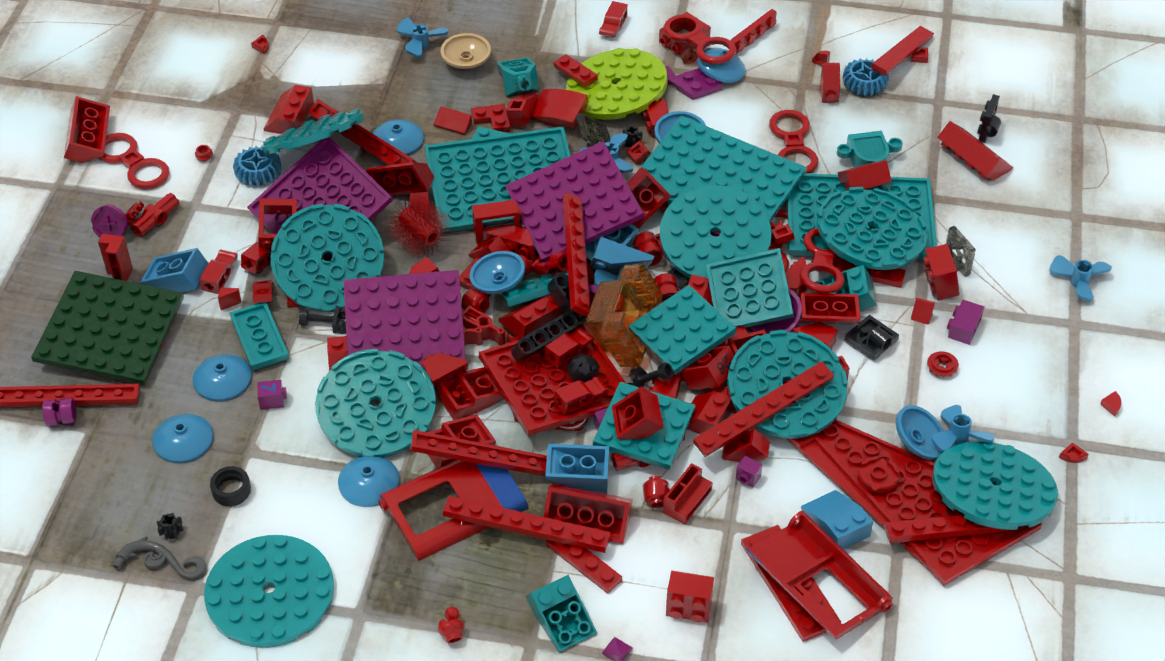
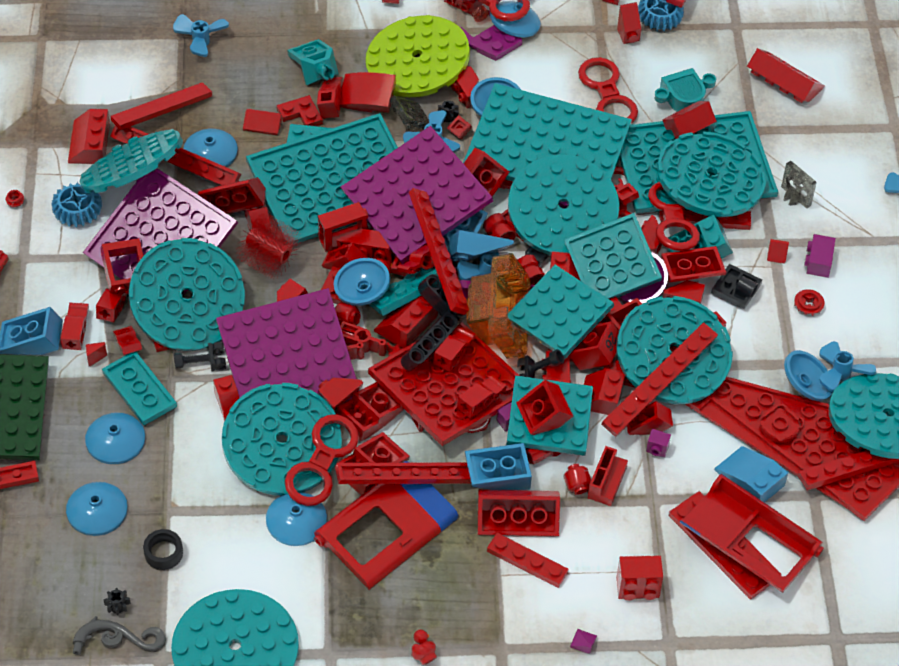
camera: 15 degrees left, 5 degrees up
(260, 44) = (33, 66): red tile -> none
(271, 394) = (173, 447): magenta brick -> none
(362, 93) = (161, 106): none -> red tile
(404, 428) = (321, 460): none -> red bar
(465, 51) = (253, 42): tan dish -> none
(526, 524) = (465, 535): red plate -> none
(561, 613) = (522, 615): teal slope -> none
(575, 70) = (372, 48): red plate -> none
(580, 367) = (473, 367): black helmet -> none
(941, 272) = (787, 209): red brick -> none
(990, 122) = (795, 43): black plate -> none

